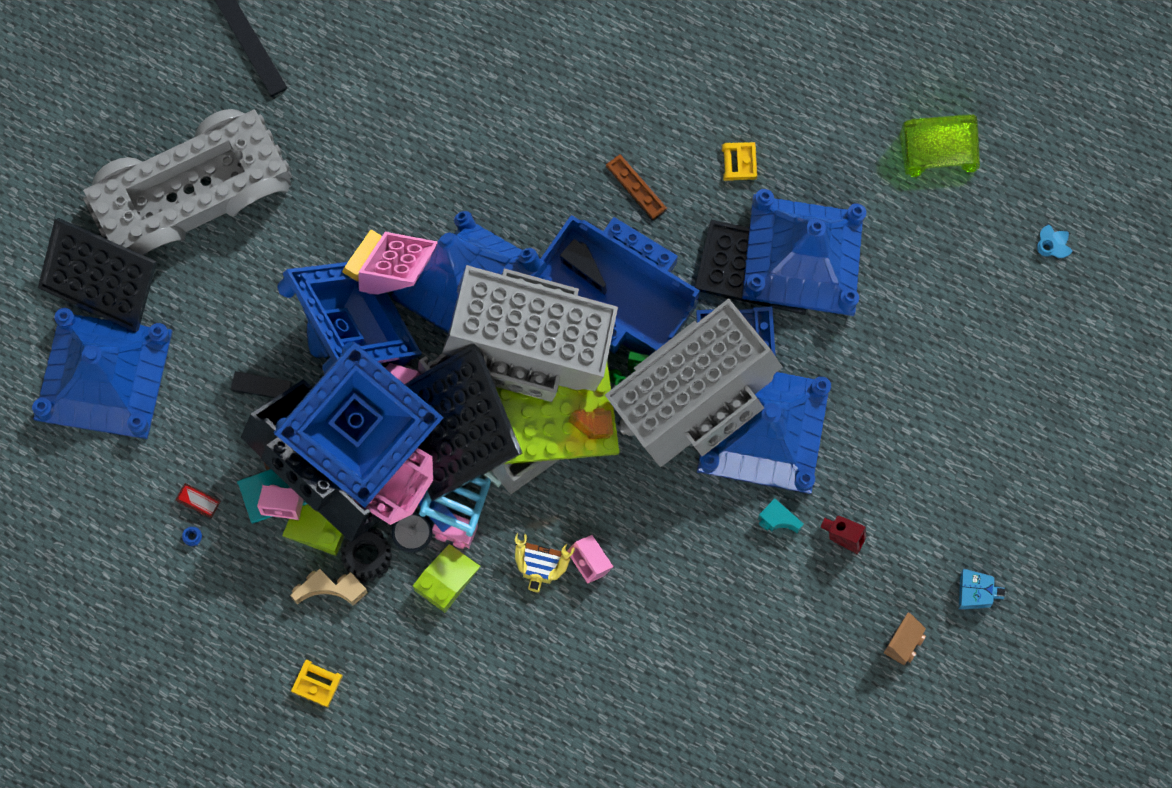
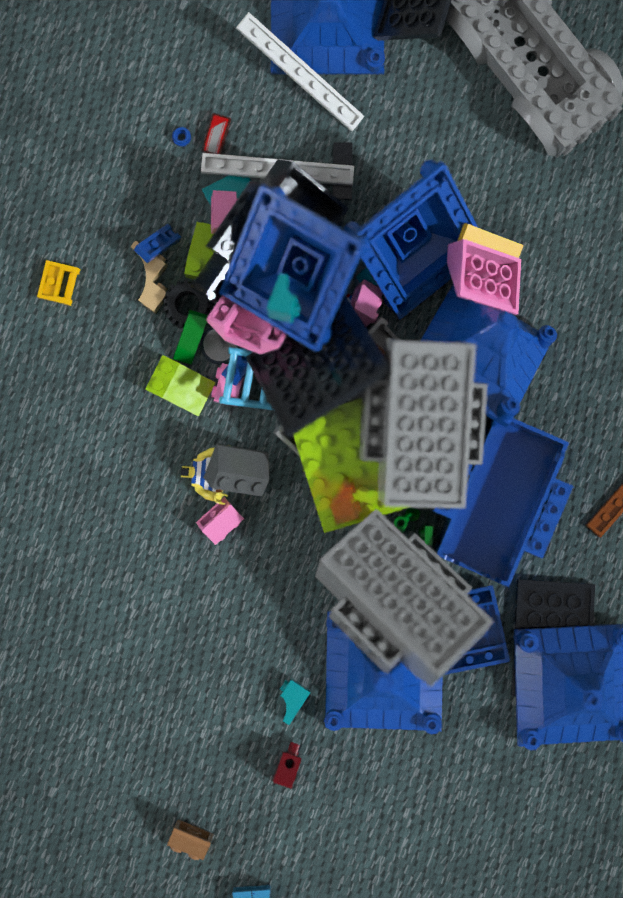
camera: 80 degrees right, 15 degrees up
(155, 405) = (299, 71): none -> white tile
(244, 454) = (259, 168): none -> white tile
(298, 573) = (157, 243): none -> blue plate
(390, 437) = (283, 304): none -> teal arch
(400, 555) = (190, 337): none -> green tile
(543, 528) = (238, 470): none -> dark grey slope
(580, 261) = (524, 460): black slope -> none

